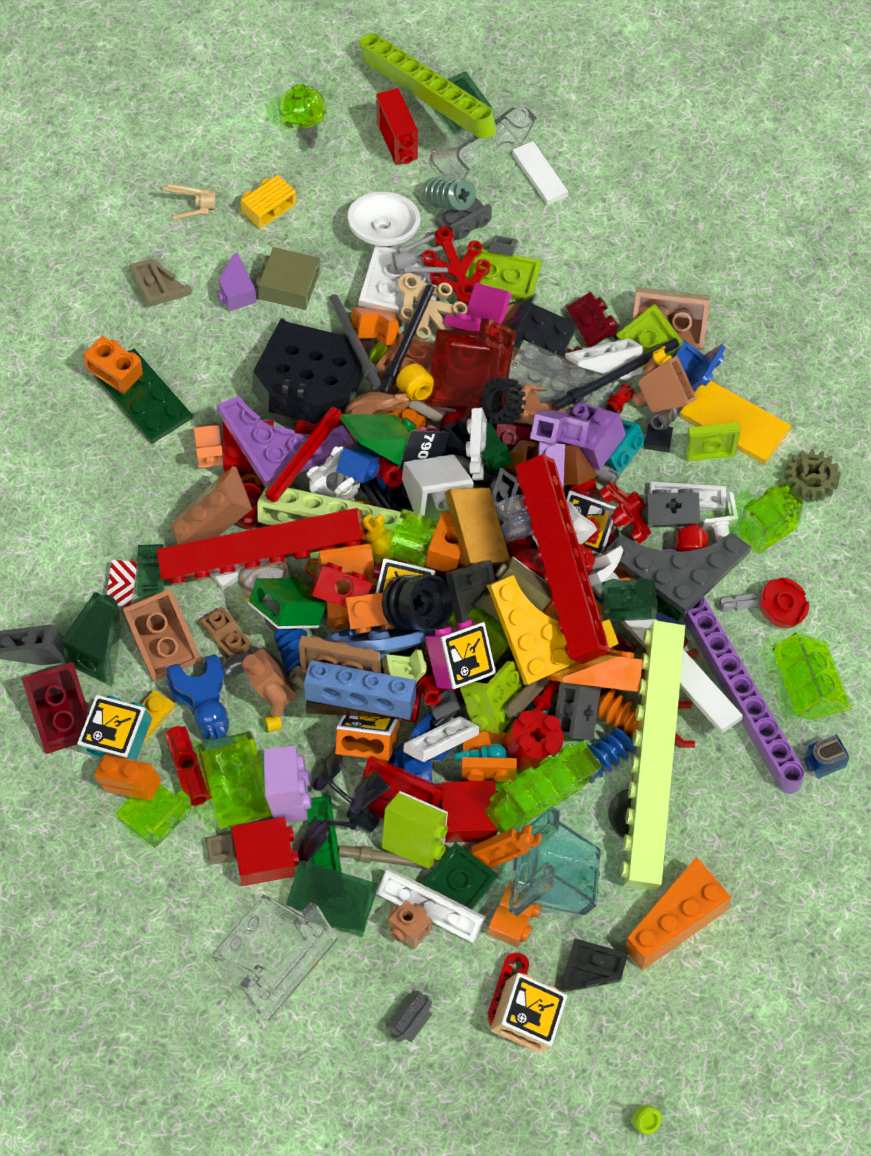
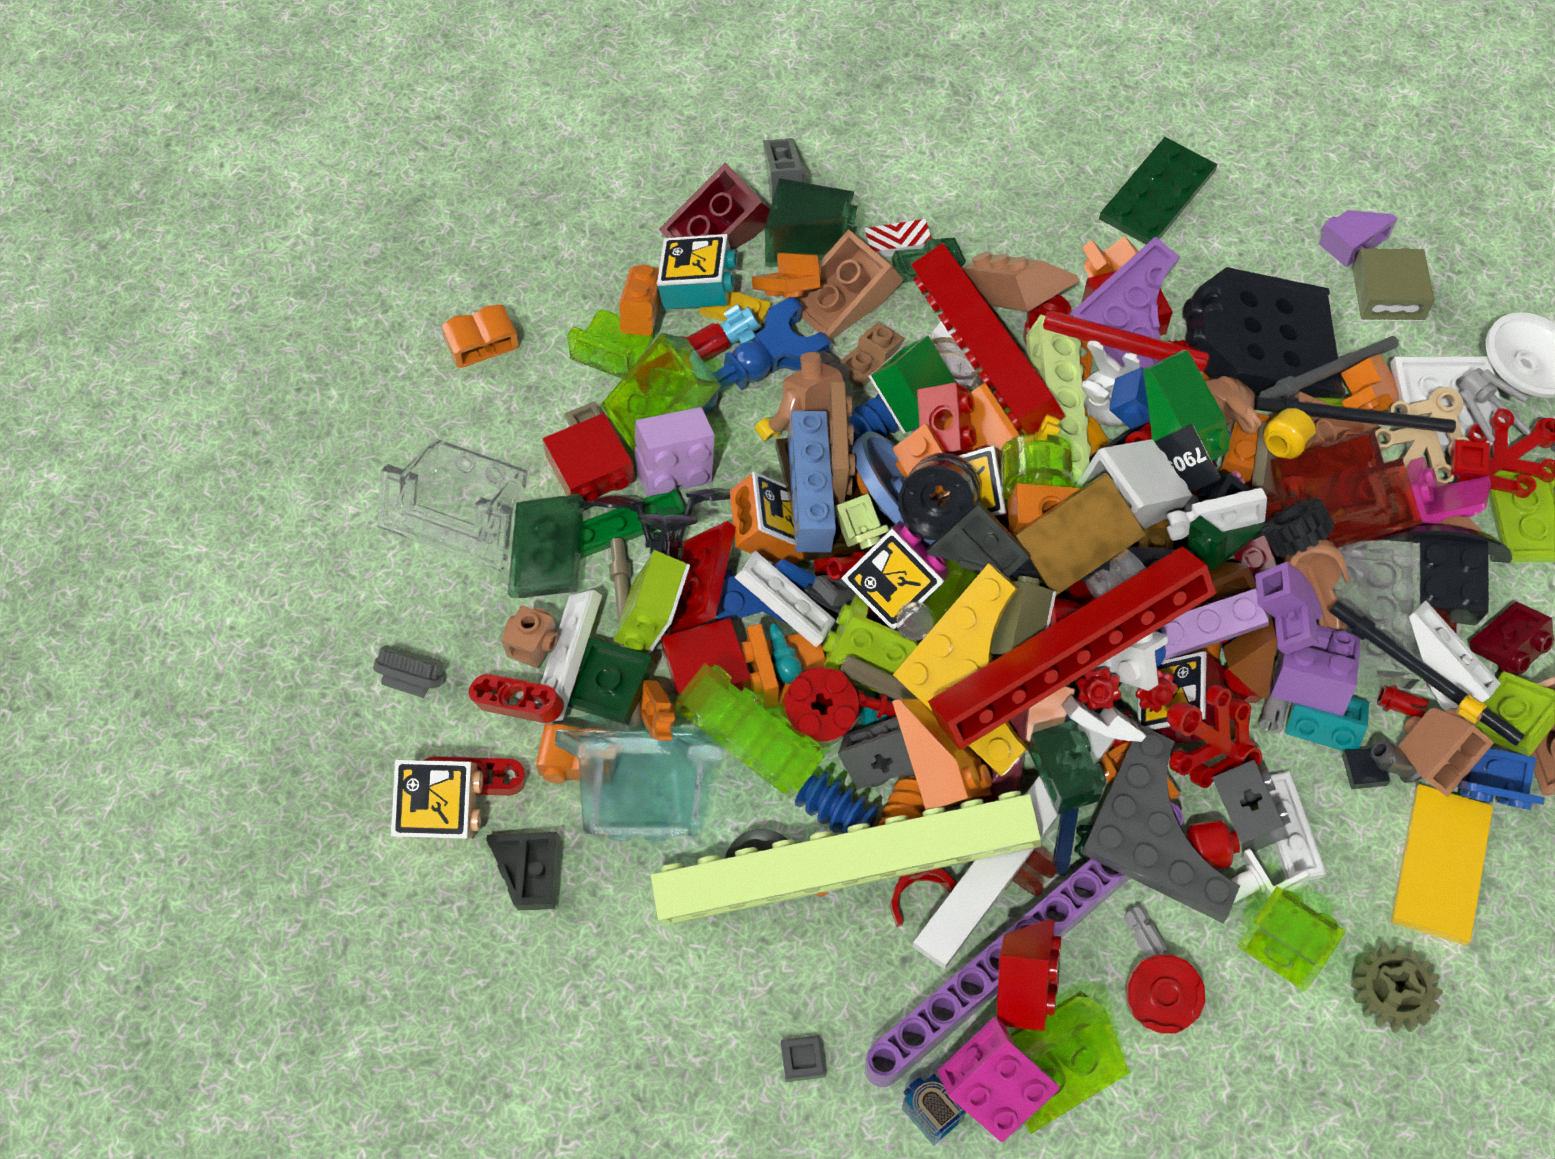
camera: 75 degrees right, 0 degrees up
(110, 367) = (1177, 141): orange brick -> none
(112, 908) = (479, 335): none -> orange brick
(144, 665) = (794, 274): none -> orange bracket
(157, 283) = (1318, 161): dark tan wing -> none
(176, 712) = (740, 324): none -> medium azure gear
(204, 199) = (1461, 173): tan plant -> none
(268, 201) = (1494, 236): yellow brick -> none
(448, 944) = (525, 708): none -> red beam
(458, 288) = (1470, 458): none -> red tile
(499, 654) = (914, 621): none -> clear tile
(646, 1119) = (321, 985): lime tile -> none
(680, 913) = (629, 958): orange wedge -> none
(712, 441) = (1382, 830): lime tile -> none
(765, 668) = (1028, 976): none -> red slope
(772, 827) = (802, 1058): none -> dark grey tile
(820, 711) = (996, 1081): none -> dark pink bracket

